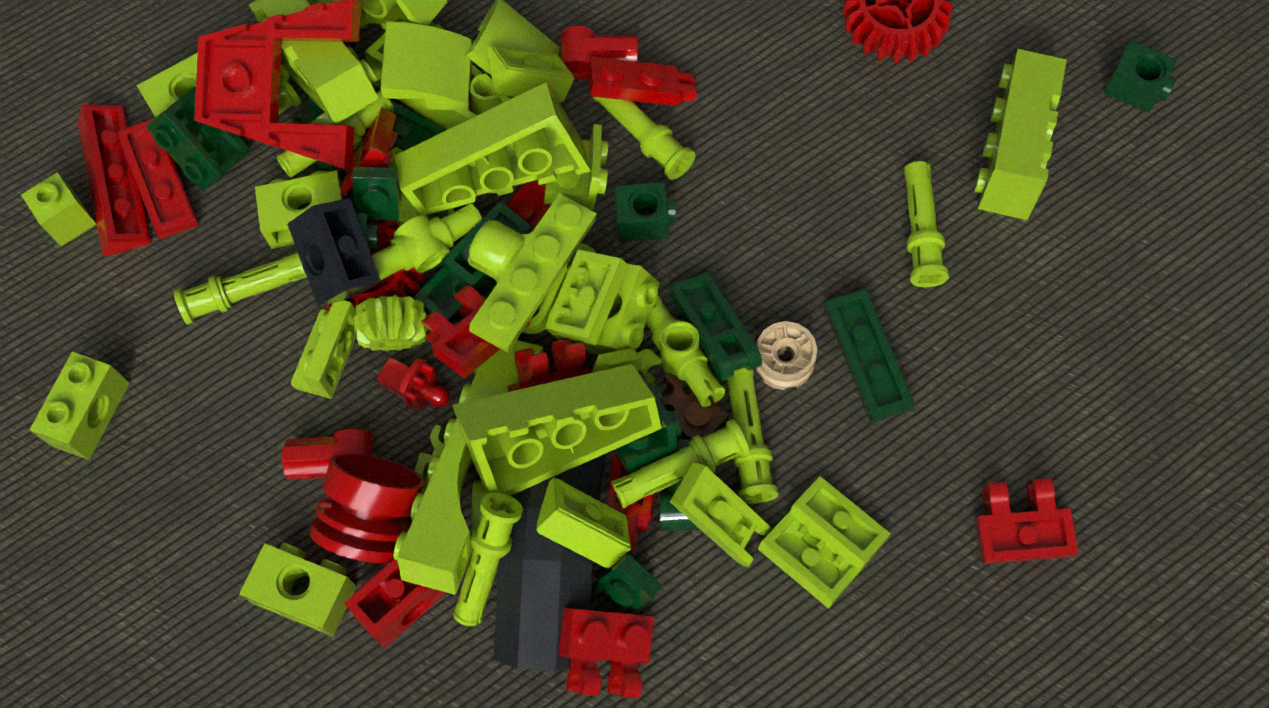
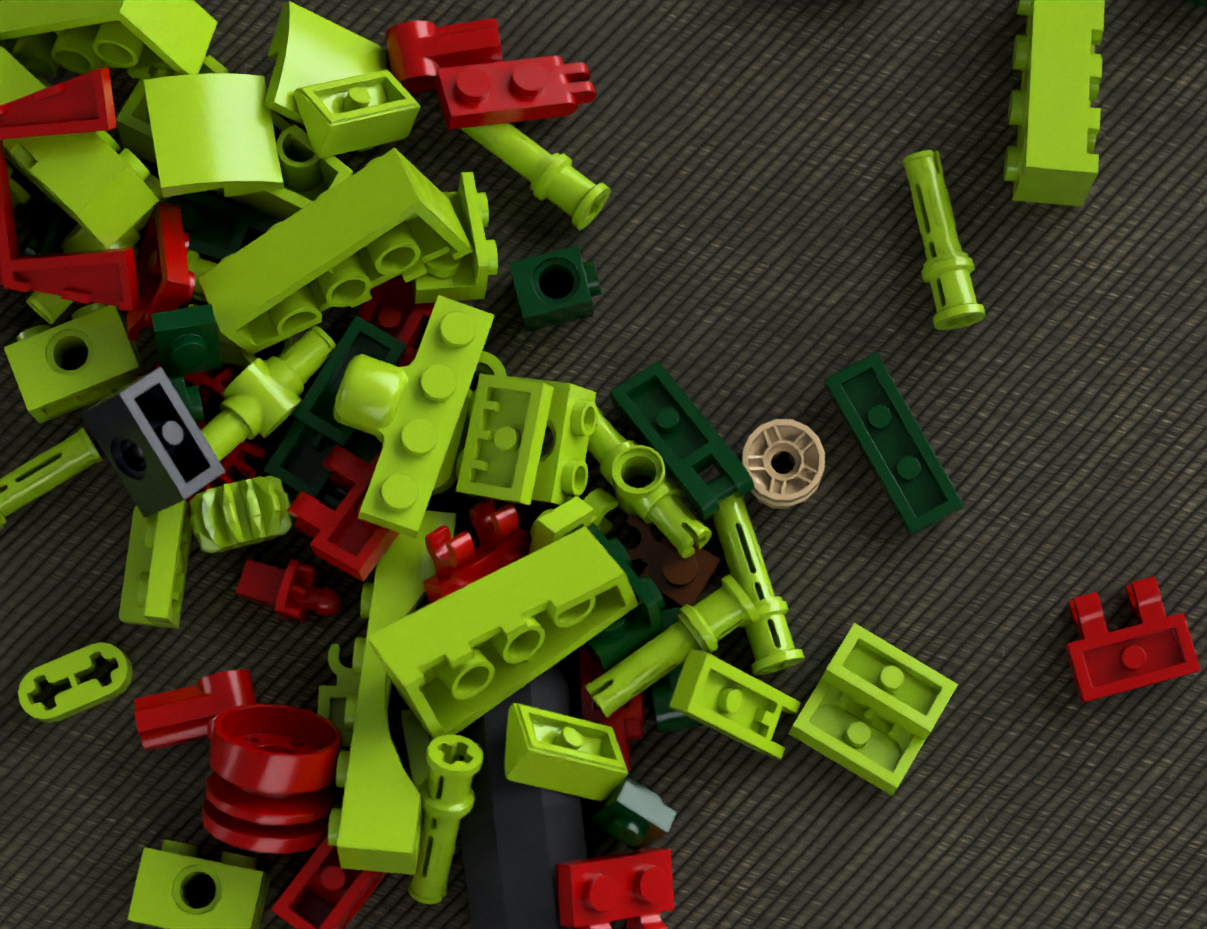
camera: 10 degrees left, 10 degrees up
(249, 421) = (70, 669): none -> lime beam

